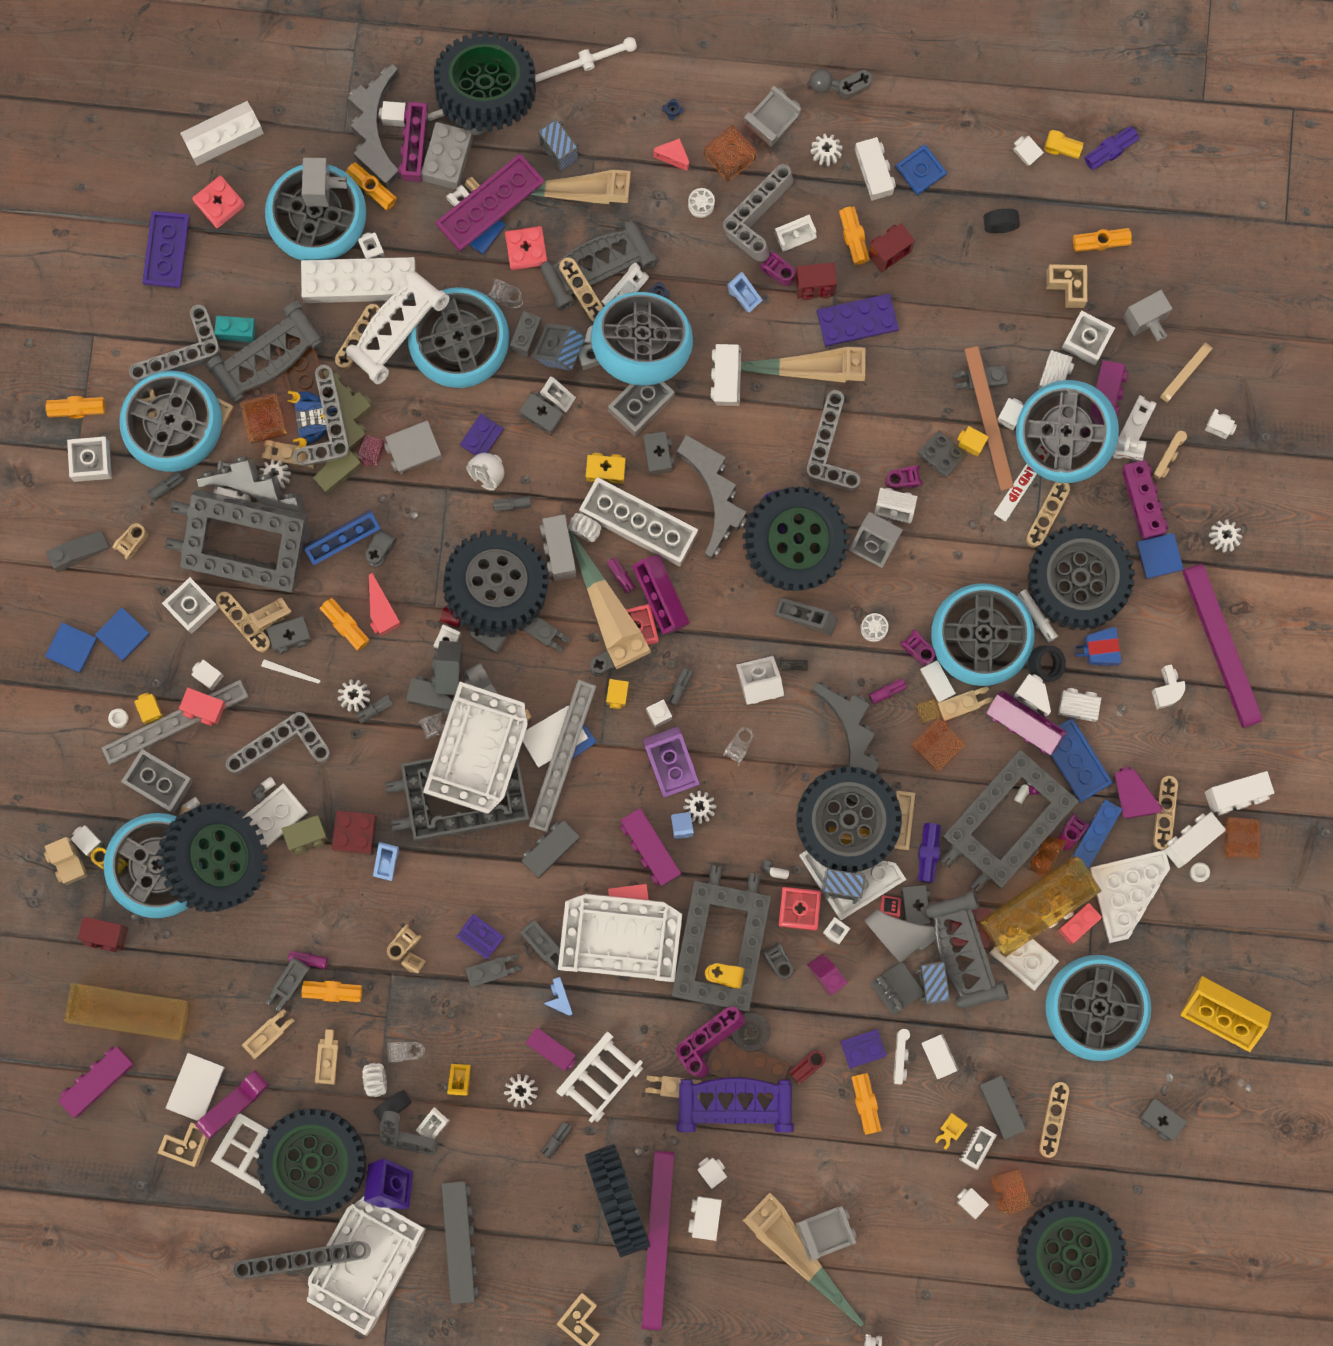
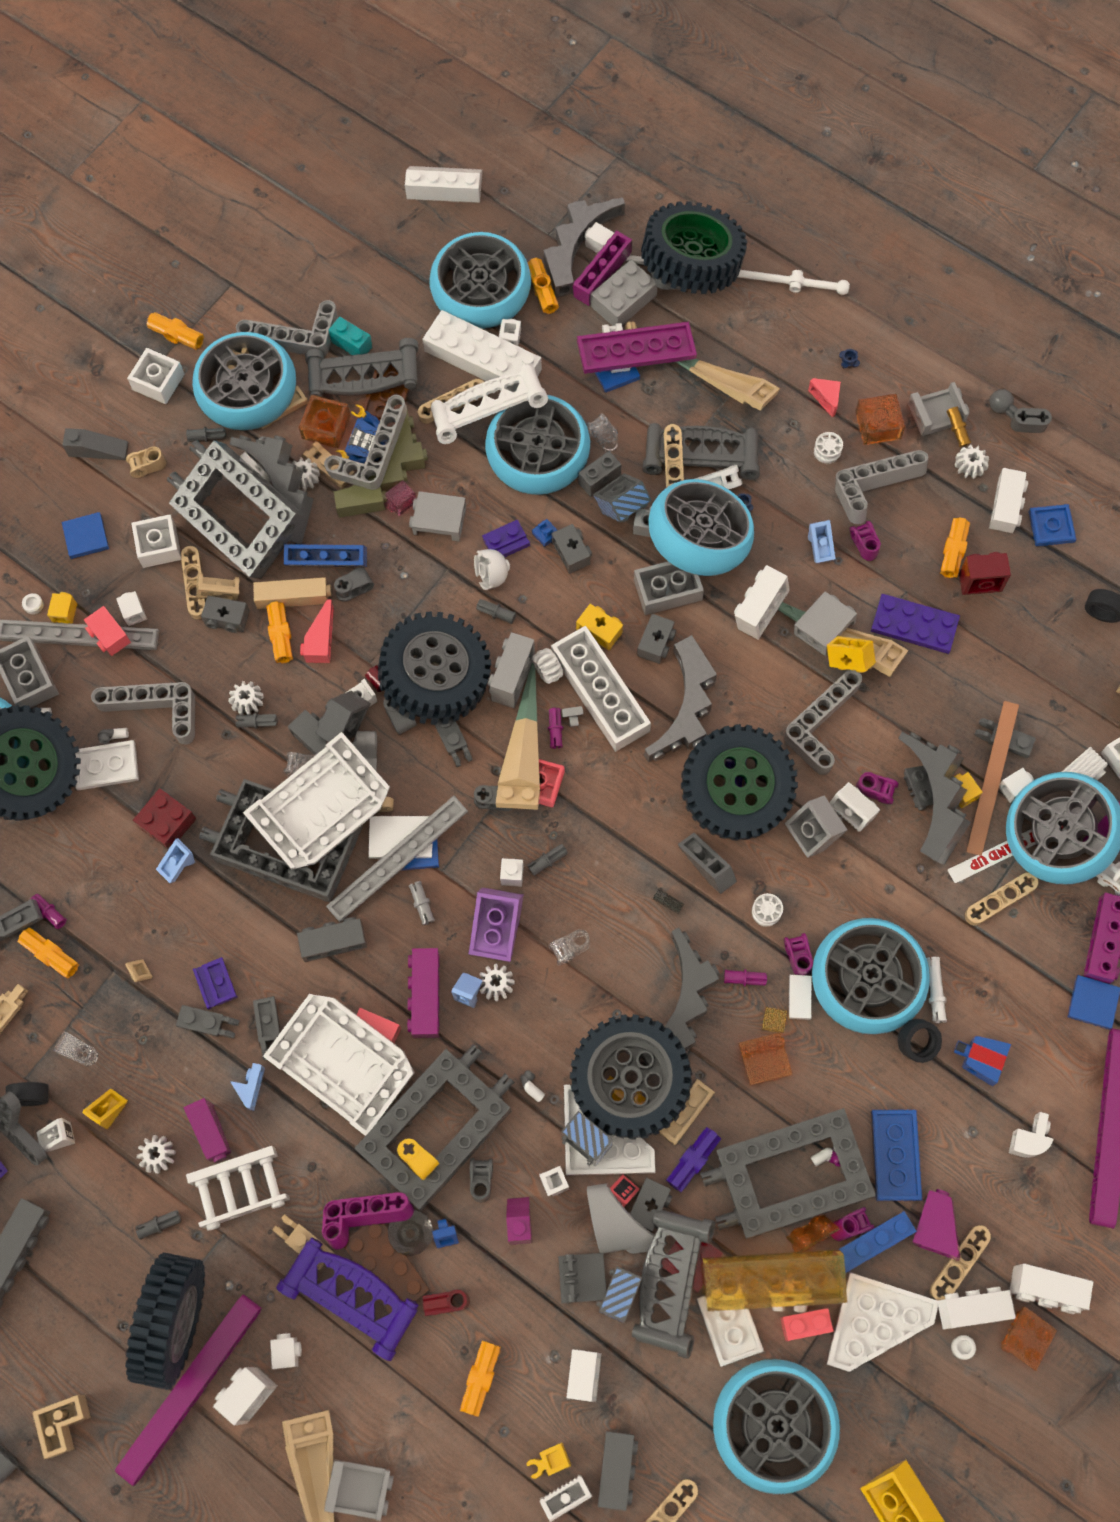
camera: 35 degrees right, 10 degrees down
(71, 647) = (35, 522): blue tile -> none
(166, 249) = (336, 247): dark purple plate -> none
(213, 211) = (411, 225): coral brick -> none
(270, 665) = (194, 634): white sticker -> none
(305, 835) = (118, 794): olive brick -> none
(317, 182) = (493, 247): light grey brick -> none
(333, 584) = (292, 592): none -> tan brick
(374, 1079) = (28, 1058): white gear -> none
(403, 942) = (141, 946): tan piece -> none
(510, 411) = (543, 532): none -> blue tile
(515, 245) = (645, 393): coral brick -> none
(557, 394) = (595, 538): white slope -> none
(558, 145) = (727, 332): dark grey container -> none
(602, 779) = (421, 903): none -> light grey pin
(617, 693) = (484, 832): yellow brick -> none
(627, 555) = (572, 714): none -> light grey tile
(661, 594) = (580, 764): magenta brick -> none
(760, 680) = (626, 896): white slope -> none
(778, 1018) = (445, 1235): none -> blue tile
(786, 362) = (824, 622): none -> light grey panel
(795, 233) = (900, 517): white hinge -> none
(798, 124) = (958, 426): none -> pearl gold pin
(810, 901) = (532, 1123): coral brick -> none
(815, 281) = (895, 565): dark red brick -> none
(824, 379) = (851, 654): none -> yellow brick
(863, 1048) = (512, 1319): dark purple plate -> none
(901, 1055) = (544, 1350): white plate -> none
(962, 453) = (947, 821): none -> dark grey arch
(962, 704) = (813, 1033): tan hinge -> none
(1026, 722) = (866, 1087): brick -> none
(1034, 695) = (887, 1064): white slope -> none
(1079, 705) = (930, 1101): white brick -> none
(1096, 549) = (1031, 958): wheel -> none

